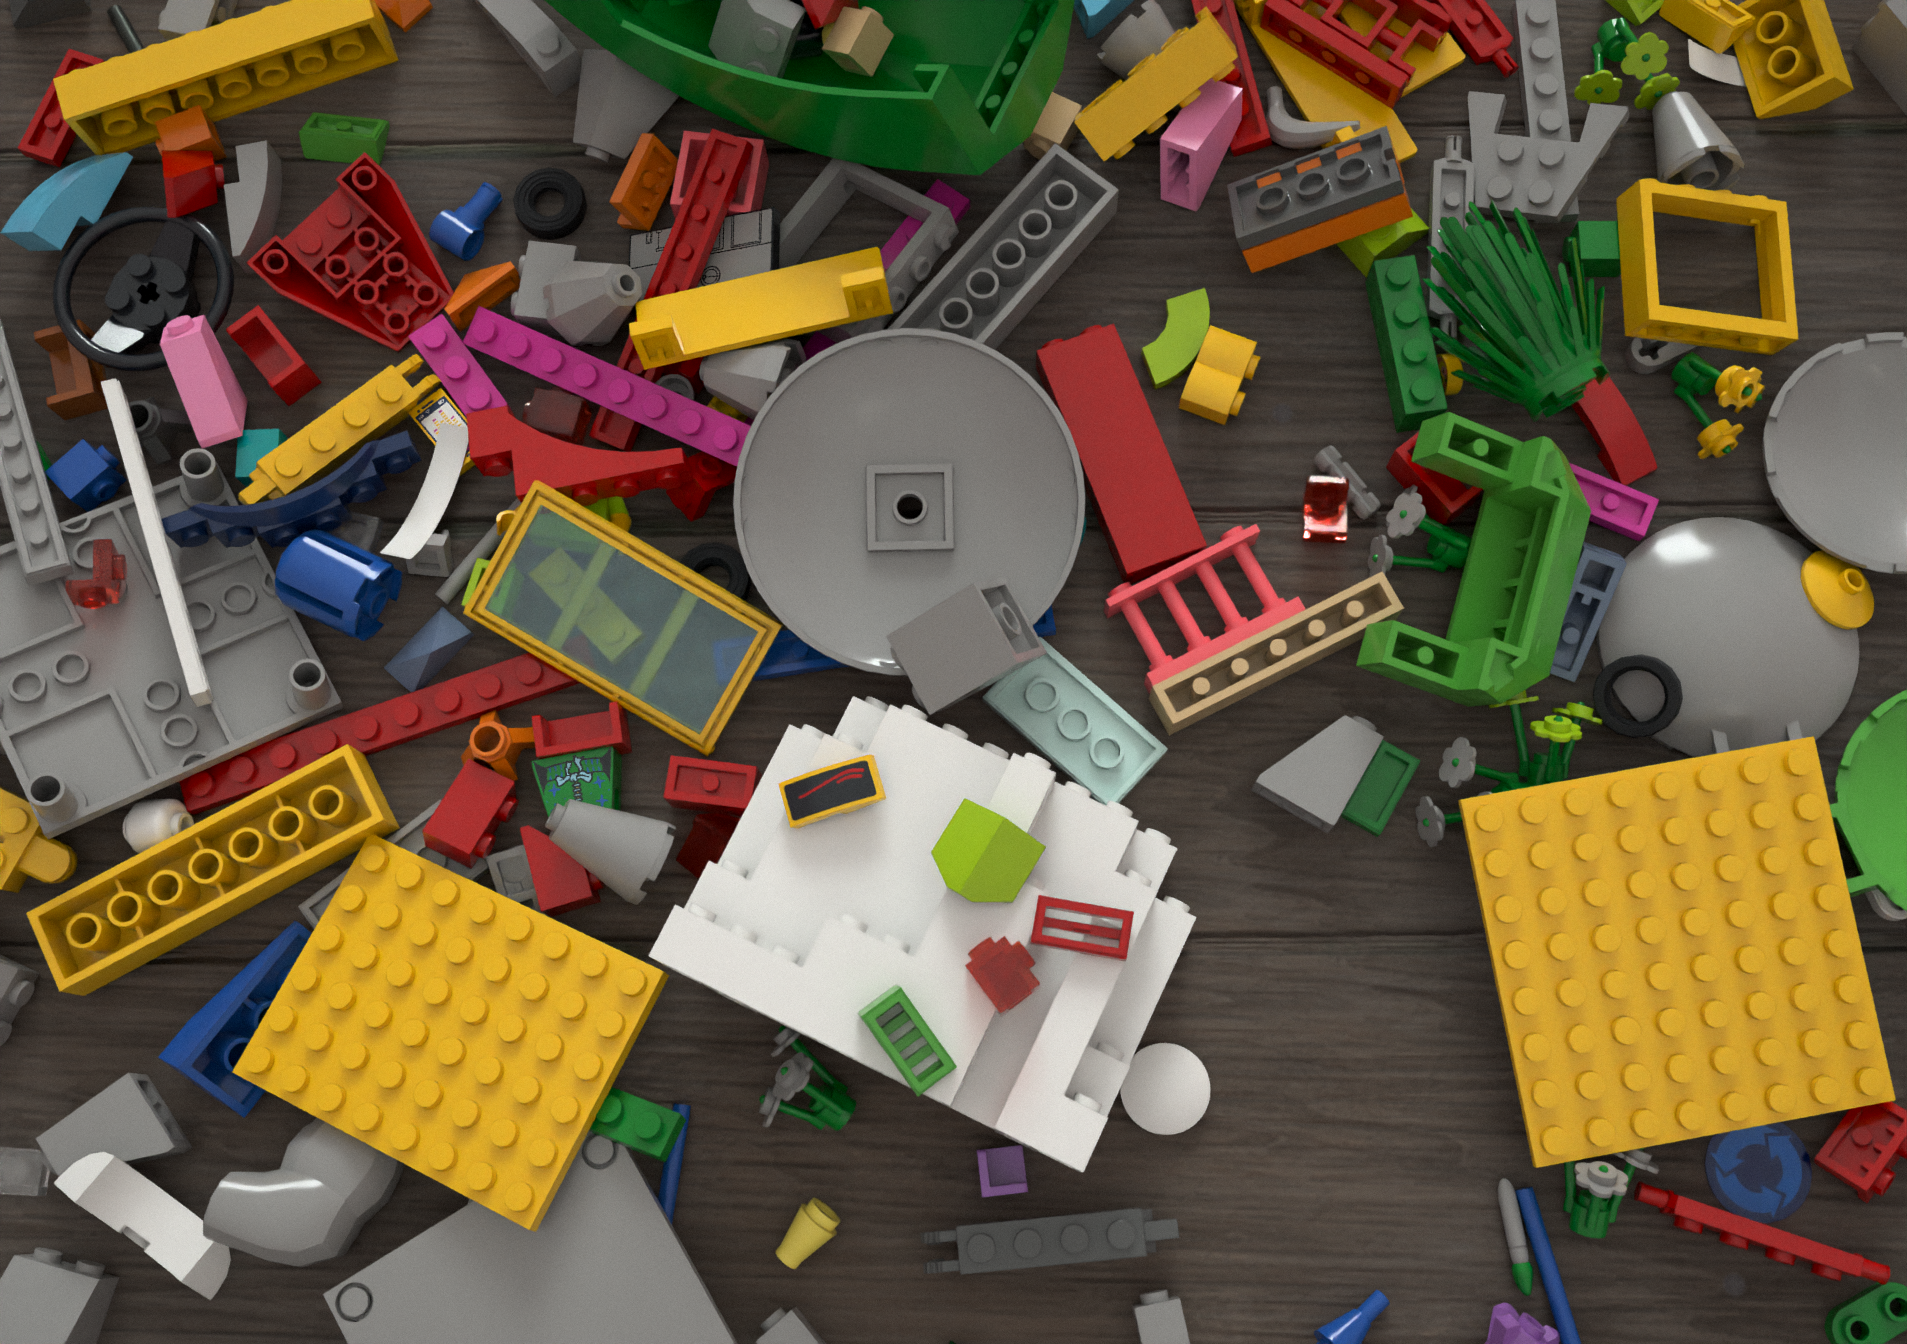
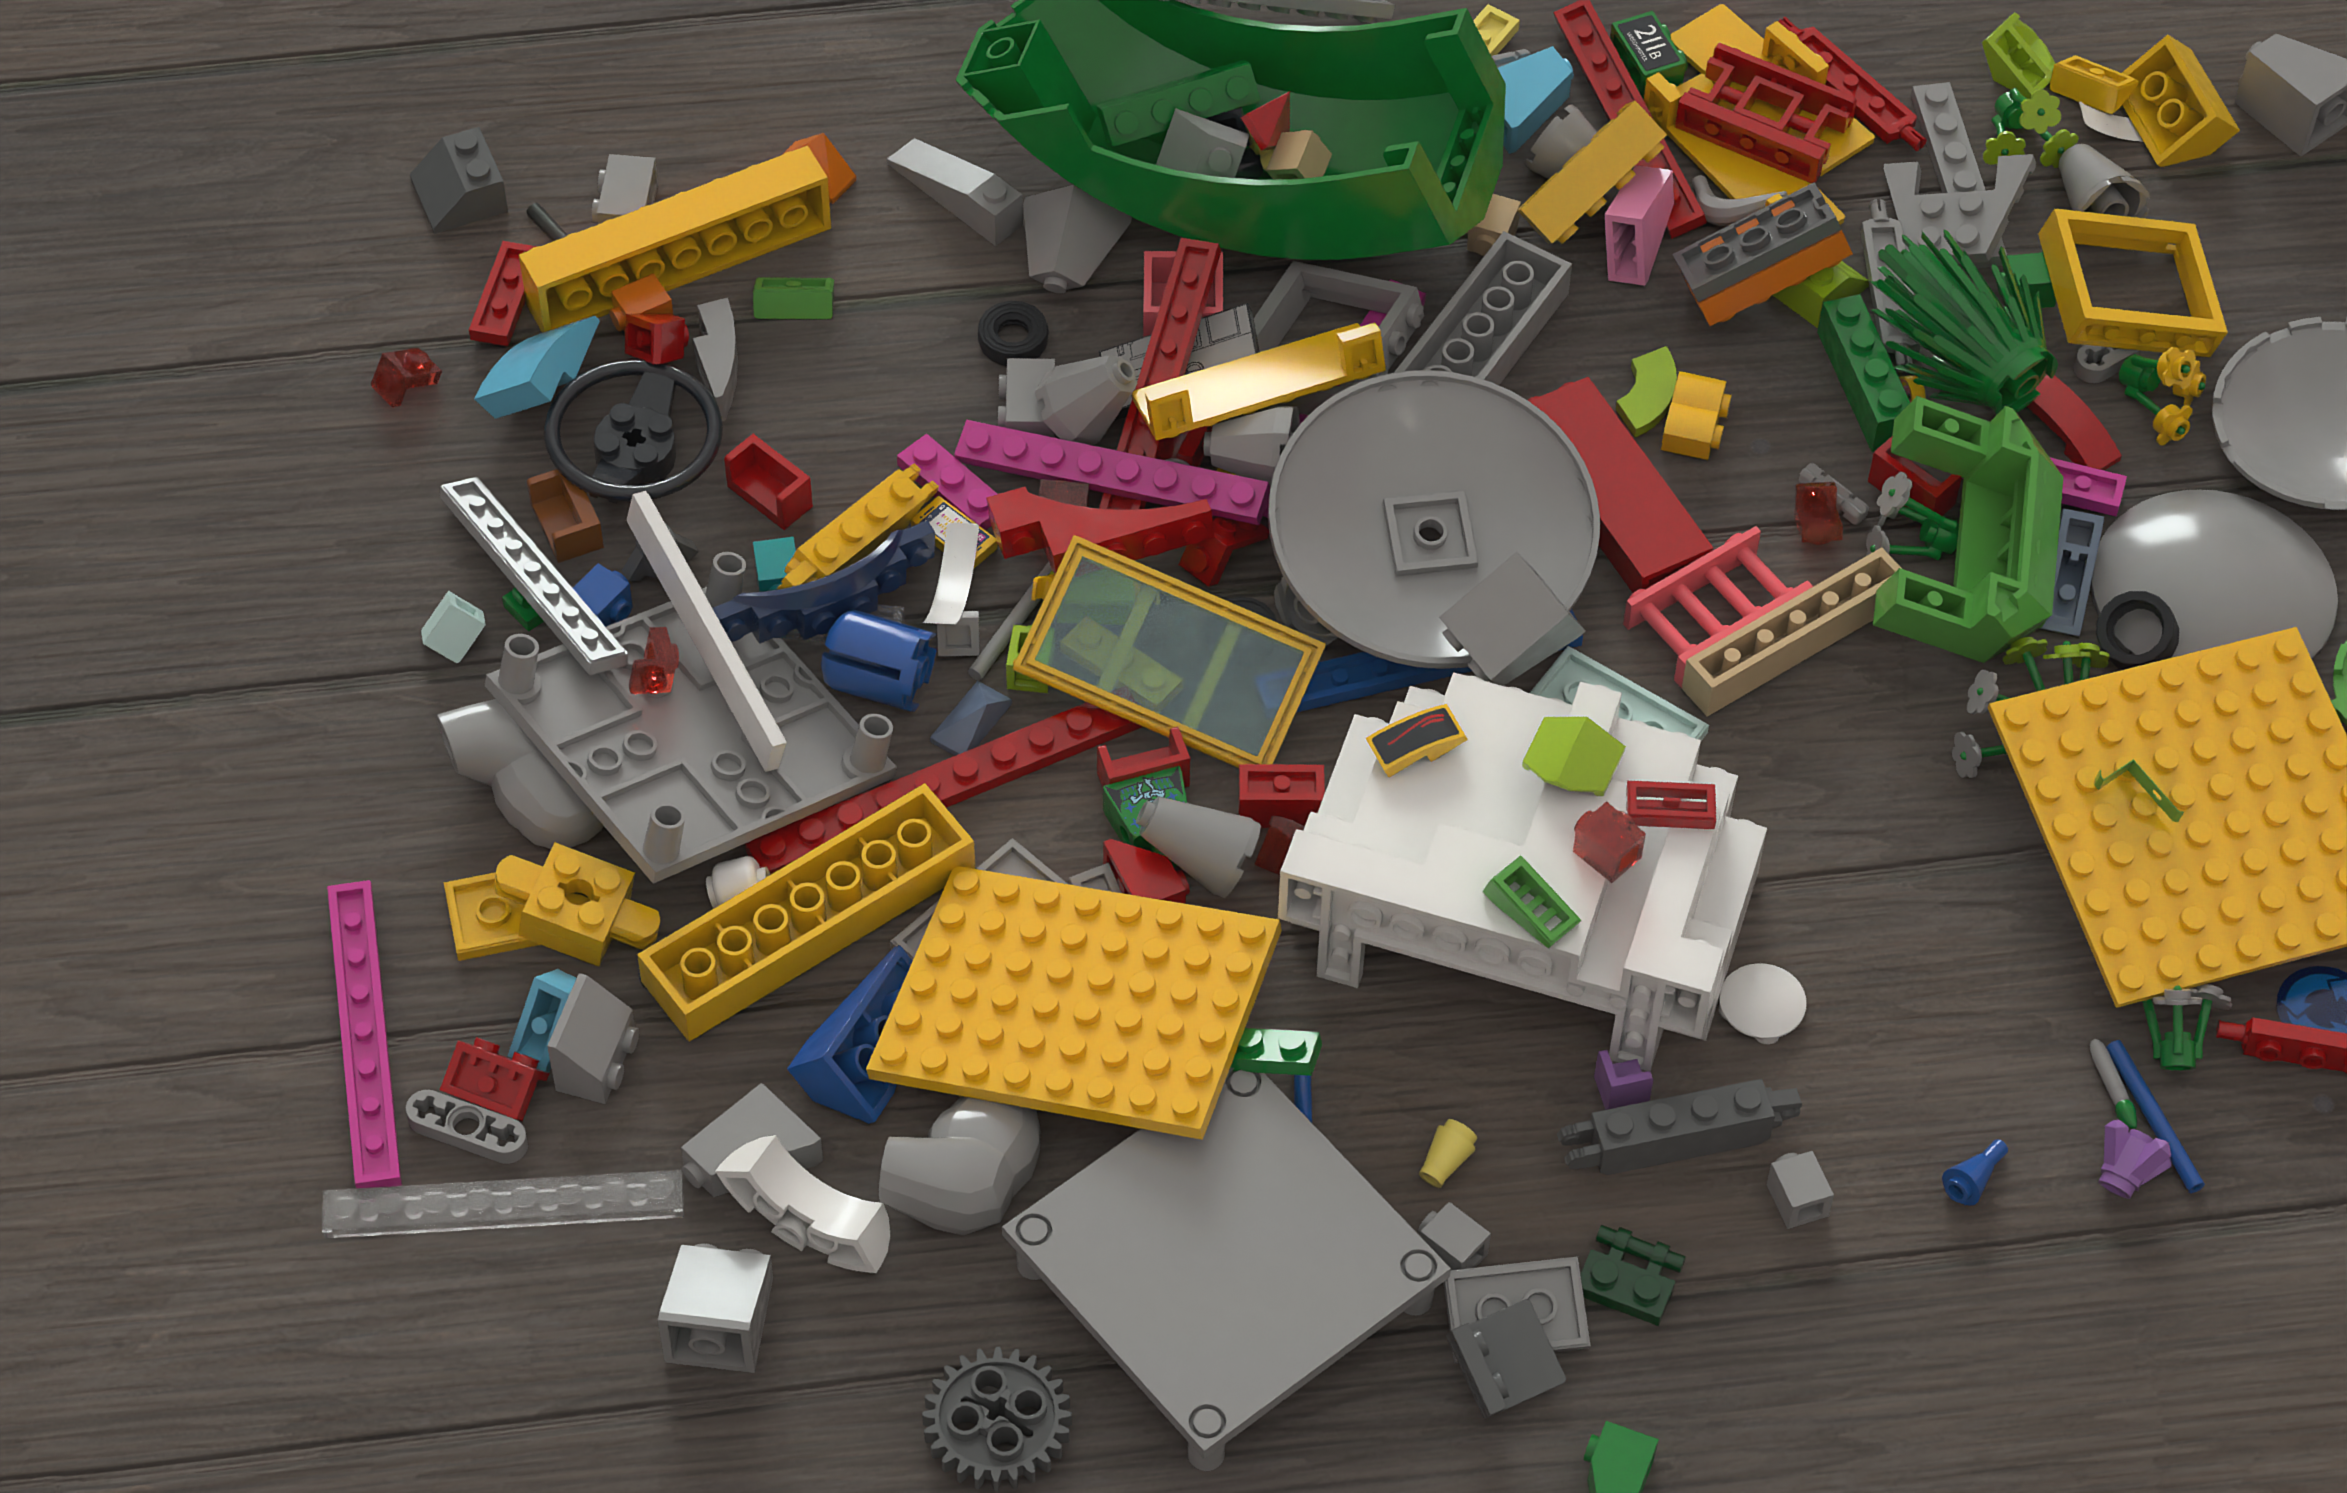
camera: 15 degrees left, 20 degrees down
(204, 380) = (716, 496): bright pink slope -> none
(360, 260) = (840, 392): red wedge -> none
(462, 230) = (934, 360): blue pin -> none
(471, 814) = (1051, 837): red brick -> none
(482, 289) = (969, 404): orange slope -> none
(497, 745) = (1061, 785): orange rock -> none
(644, 183) = (1109, 304): orange bracket -> none
(829, 1104) = (1447, 1043): plant -> none
(1322, 772) = (1855, 727): light grey slope -> none
(1380, 788) = (1914, 739): green tile -> none
(1614, 919) = (2145, 781): none -> bright green piece
(1837, 590) = (2305, 533): yellow dish -> none

